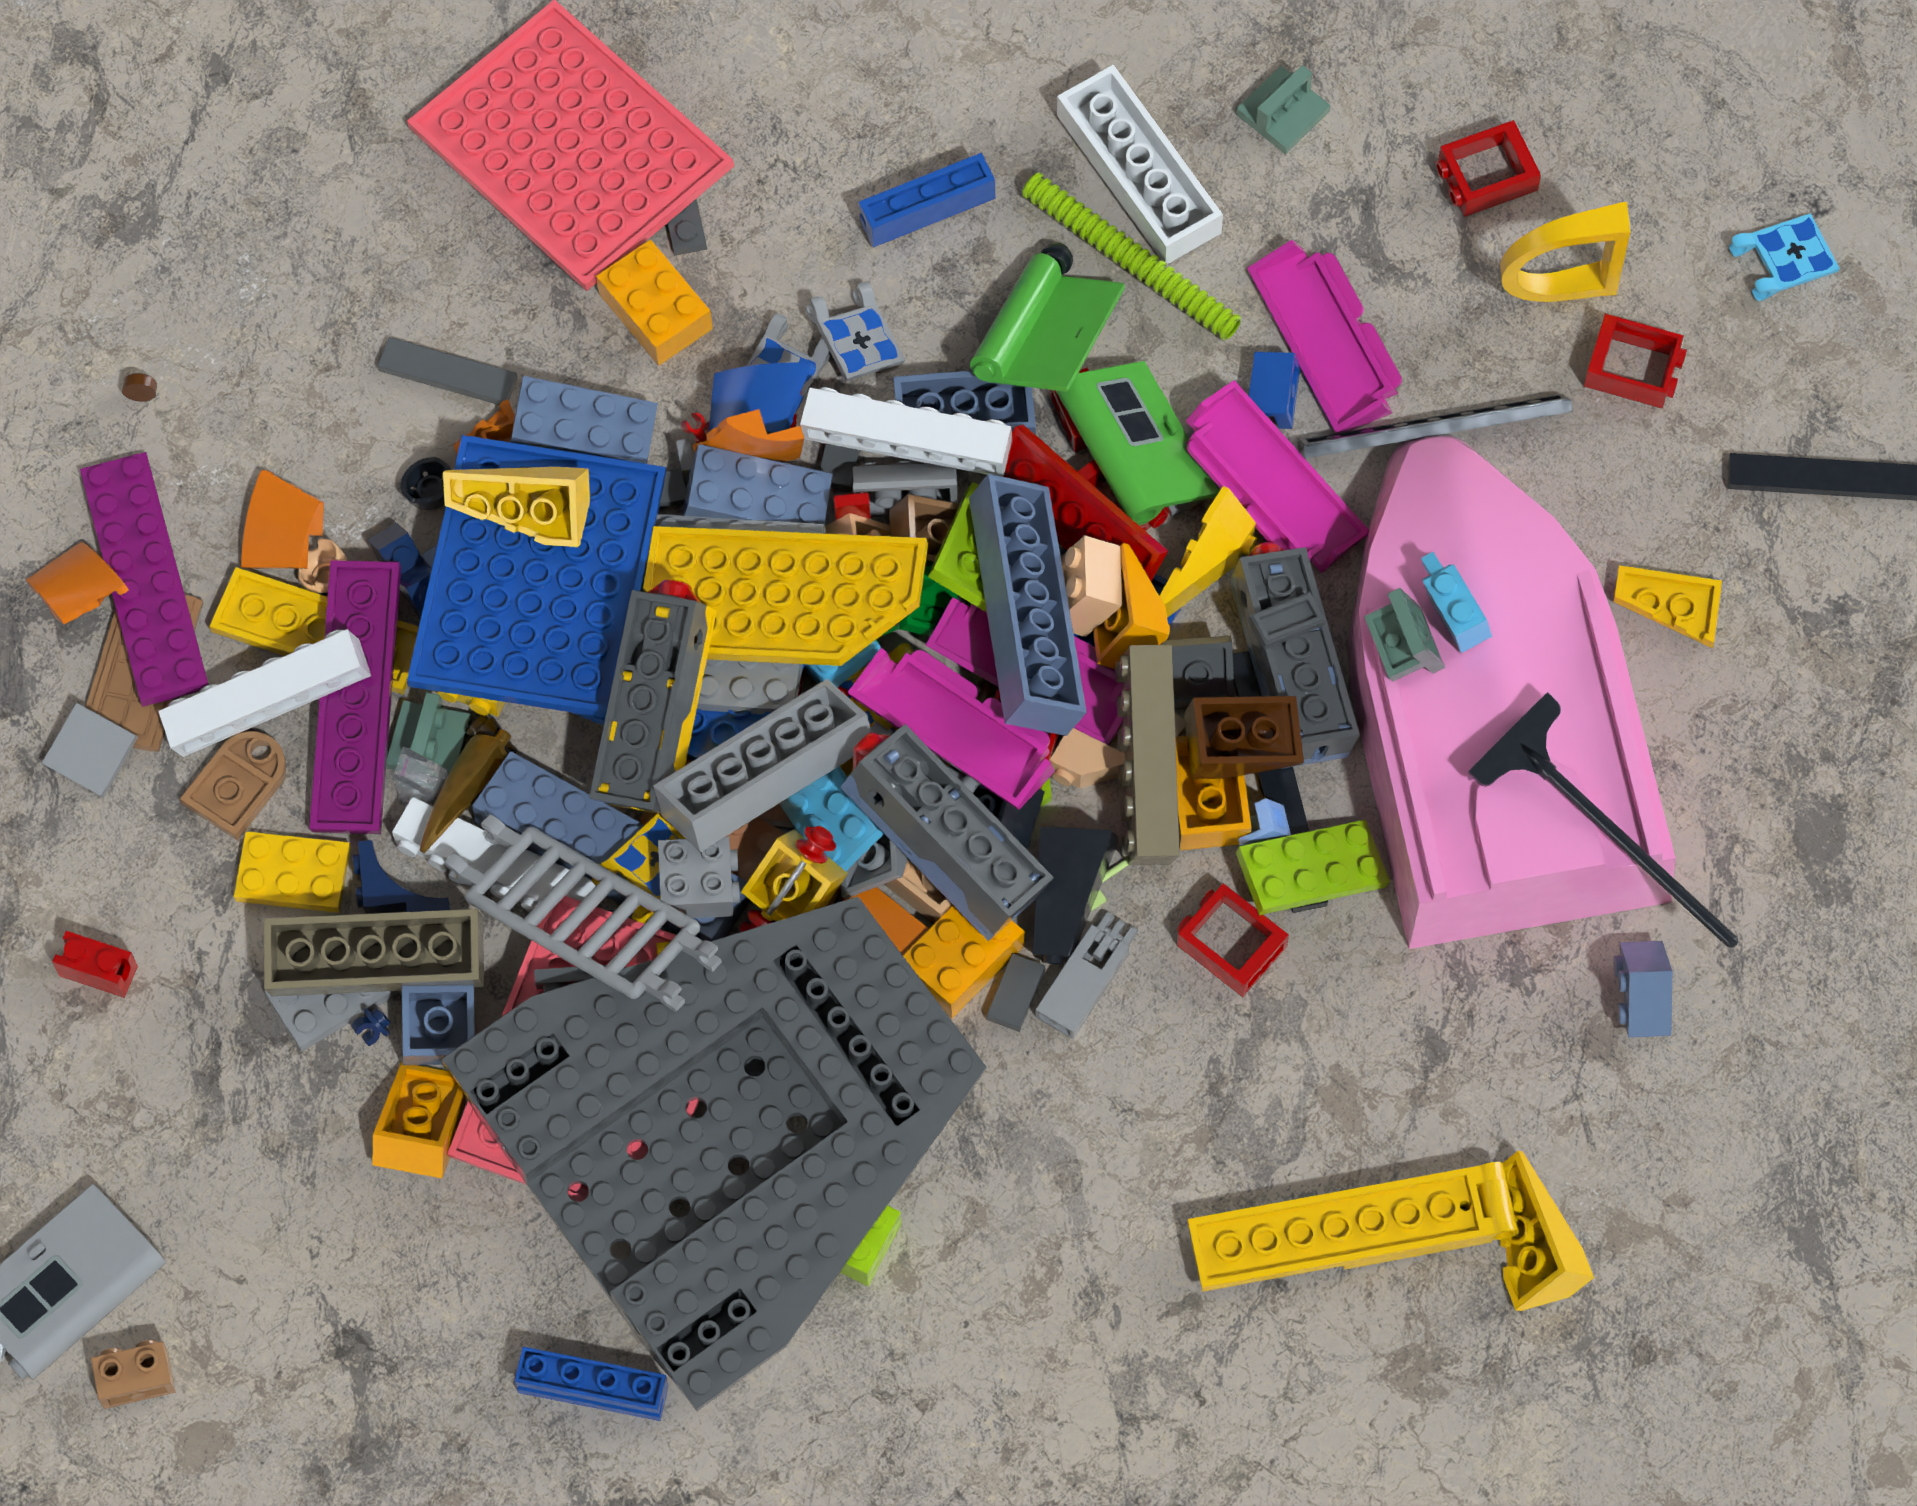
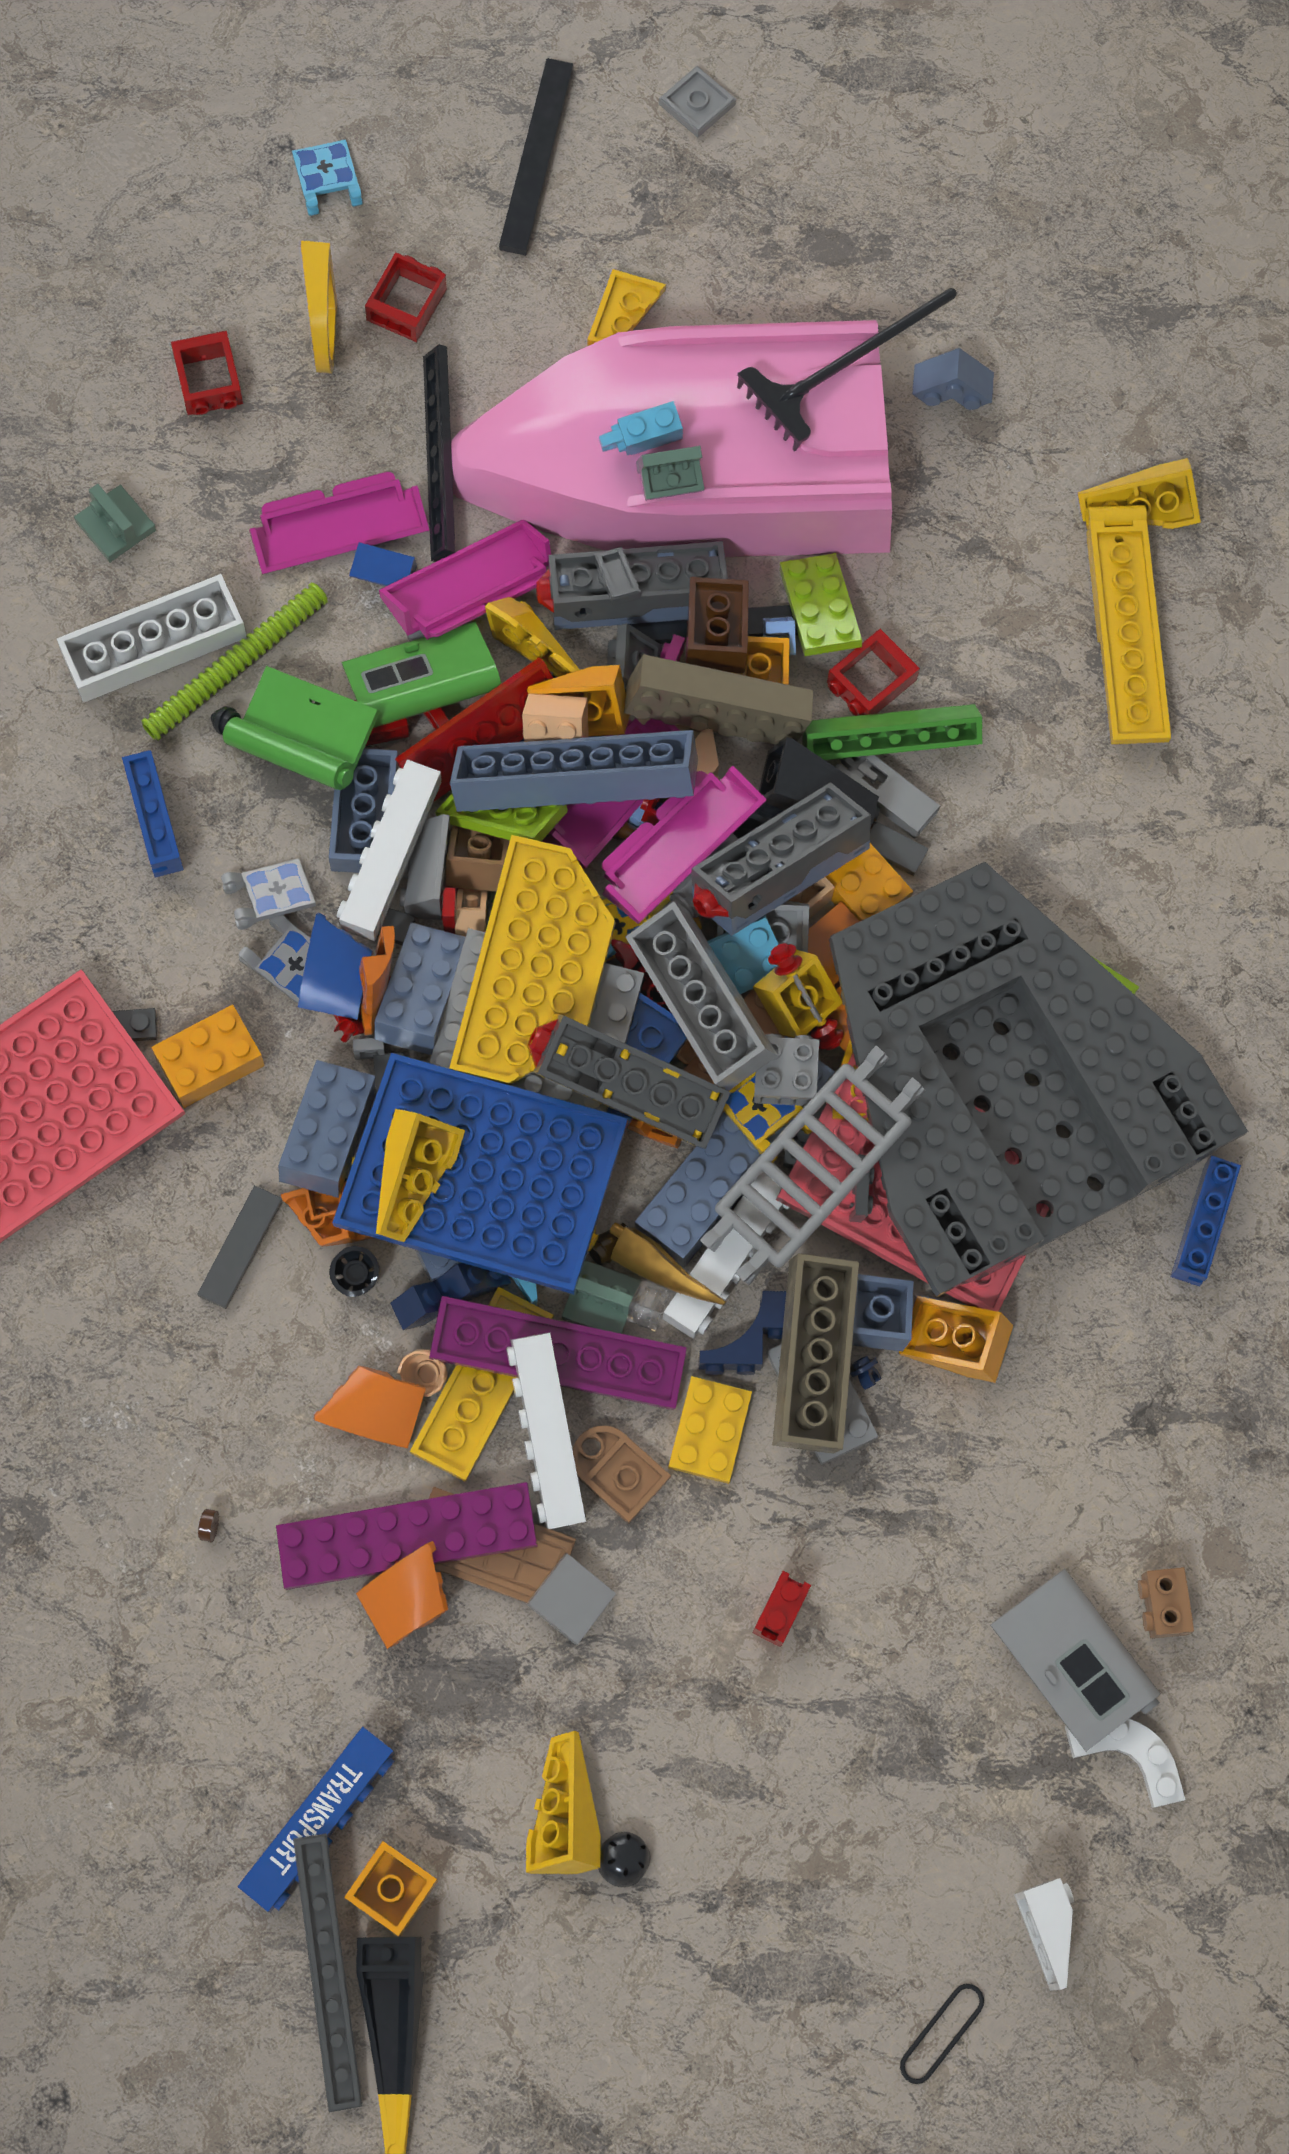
camera: 90 degrees left, 5 degrees up
(1157, 966) = (894, 732): none -> bright green brick

